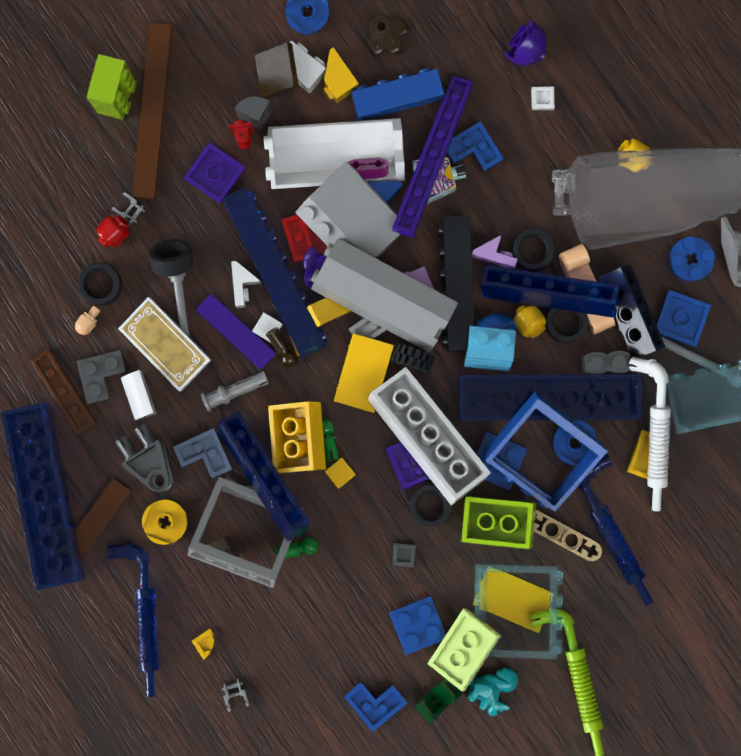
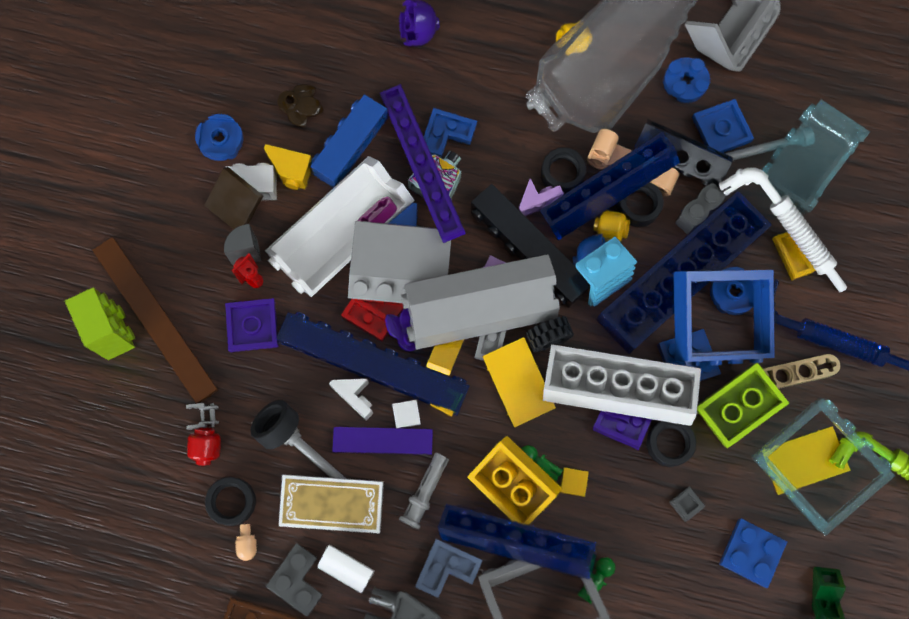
camera: 45 degrees left, 10 degrees down
(288, 357) = (445, 423): dark brown pin -> none
(464, 649) = (812, 538): yellowish green tile -> none
(488, 688) = (858, 554): teal animal -> none
(542, 98) = (464, 55): white tile -> none

